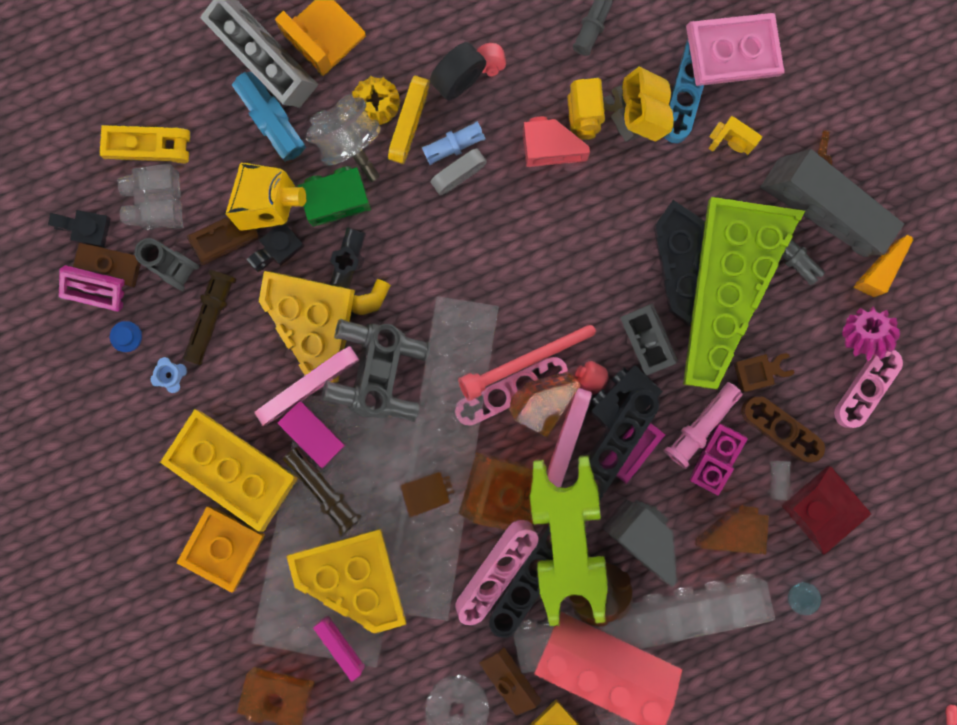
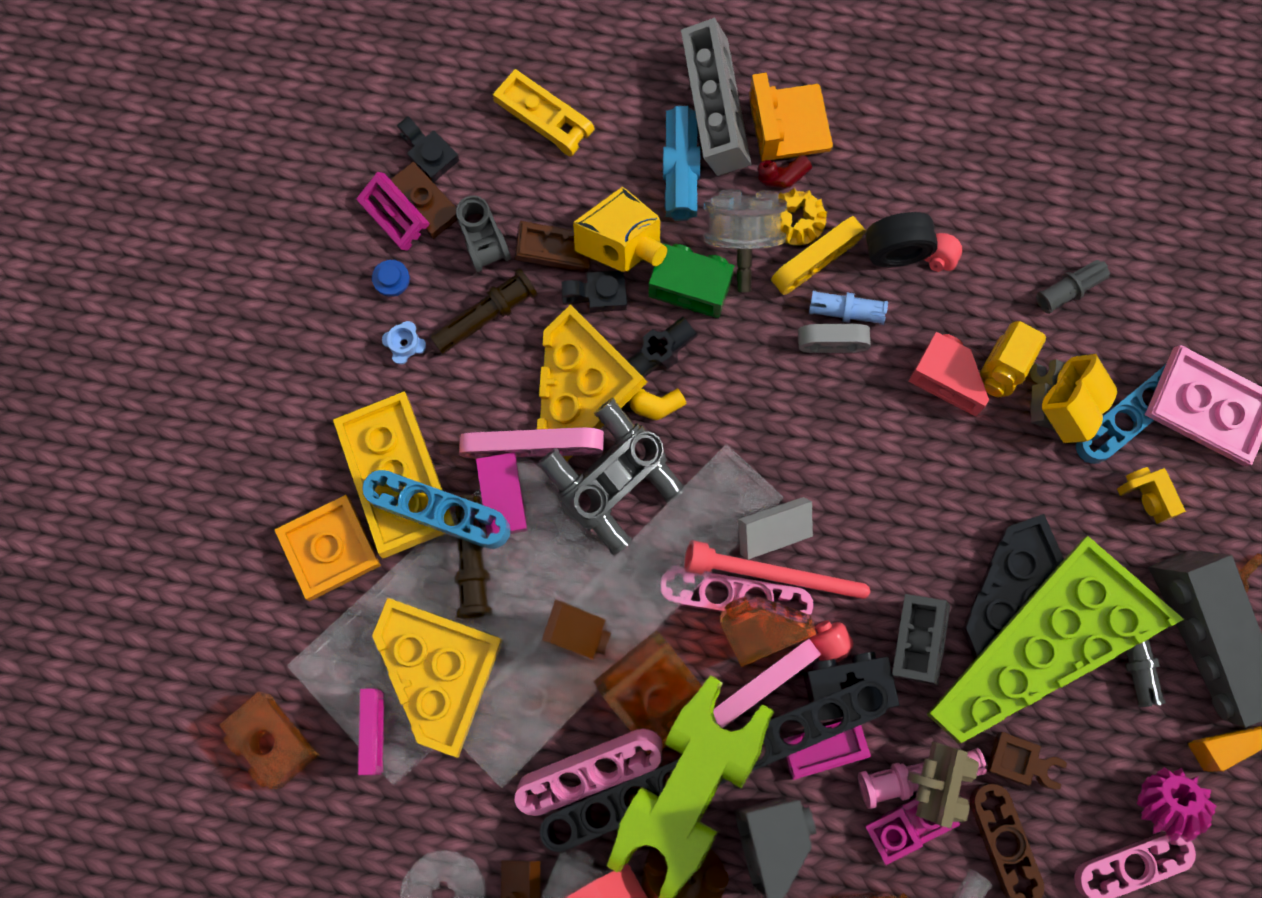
camera: 35 degrees right, 10 degrees down
(155, 197) = (516, 168): clear hips -> none
(275, 476) = (438, 504): none -> dark azure beam
(347, 77) = (783, 177): none -> dark red arm
(507, 330) = (775, 528): none -> light grey tile
(720, 423) = (941, 785): none -> dark tan hips

